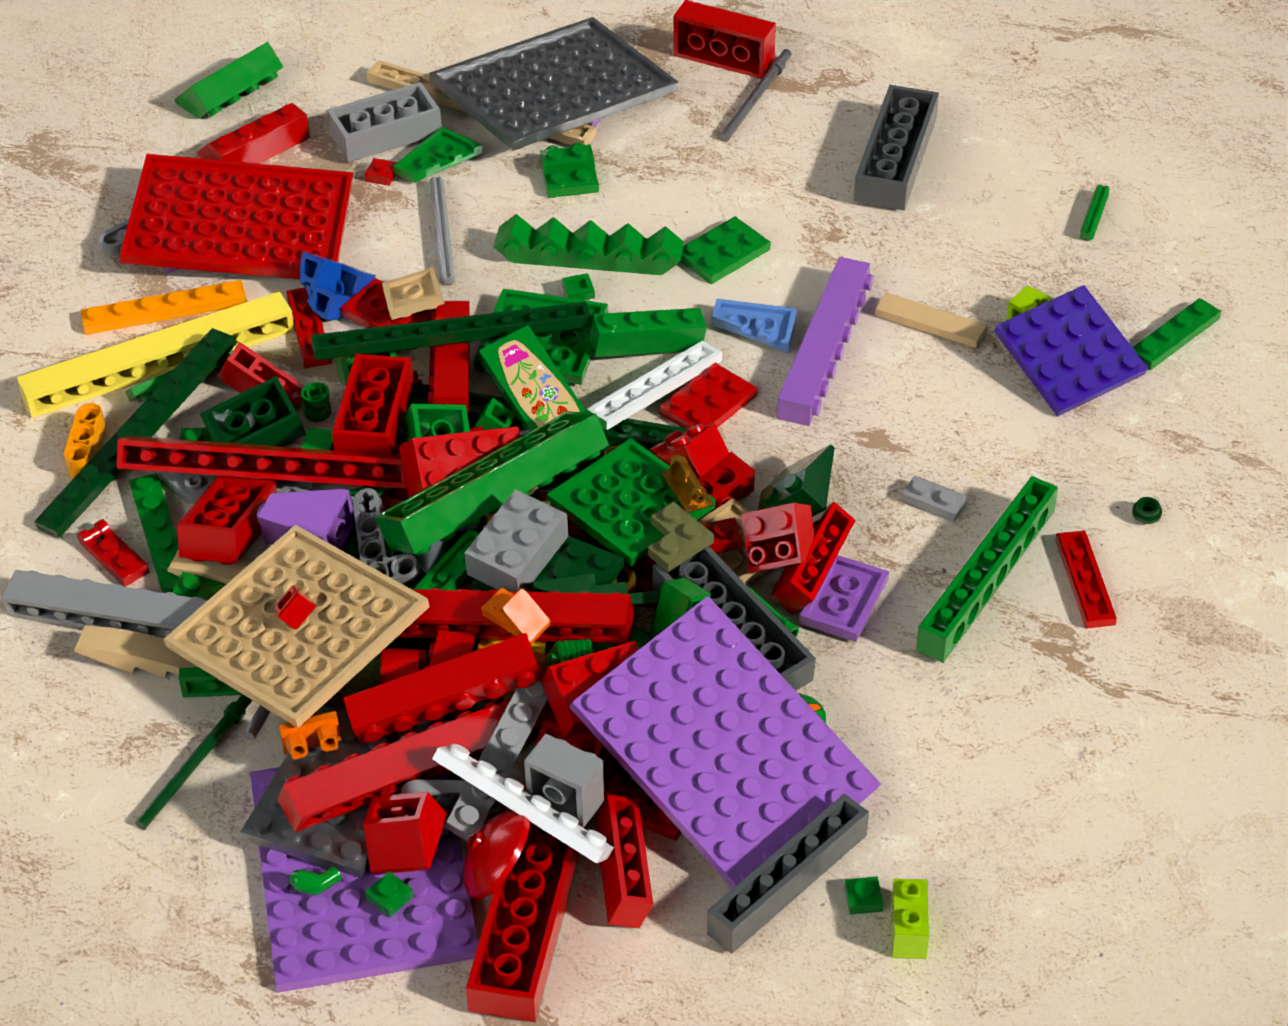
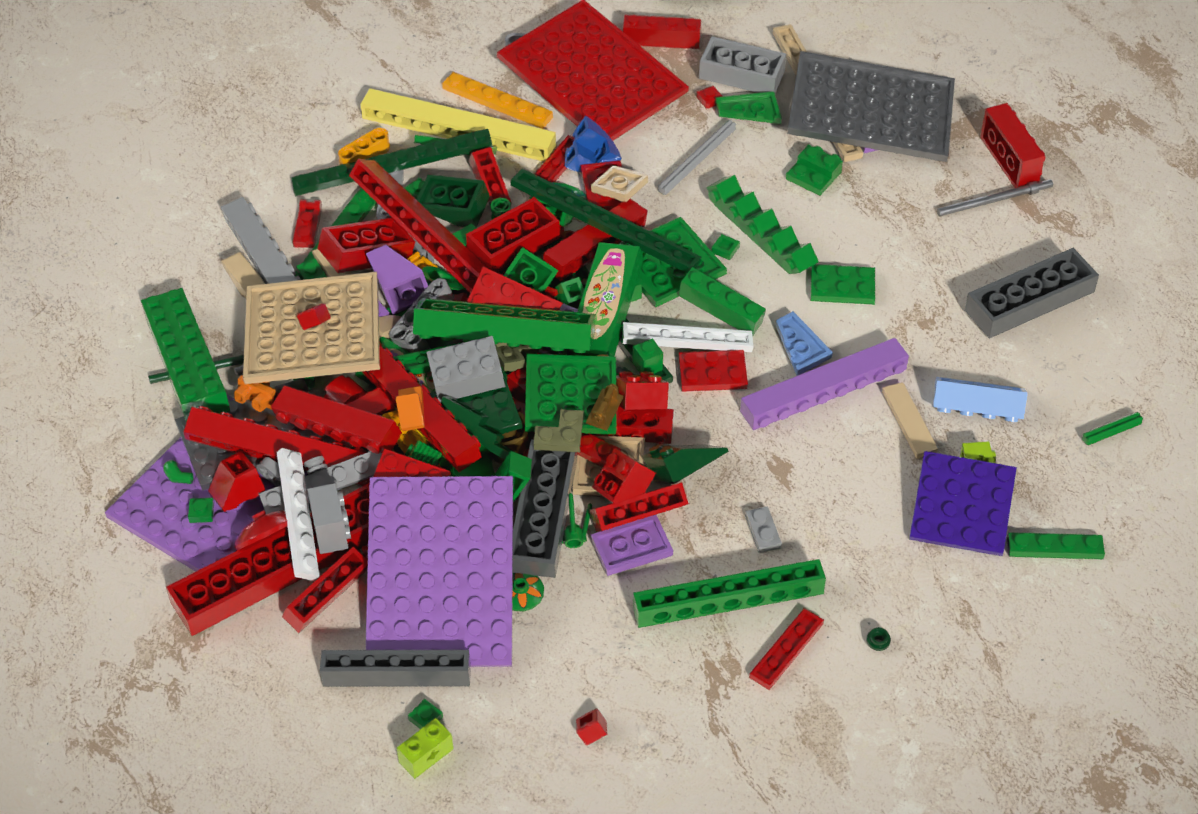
camera: 45 degrees right, 5 degrees up
(167, 761) = (184, 353): none -> green brick
(477, 746) = (315, 464): none -> light grey bush
(651, 423) = (648, 357): none -> green brick
(966, 260) = (979, 397): none -> light blue slope
(1021, 775) = (591, 726): none -> red slope

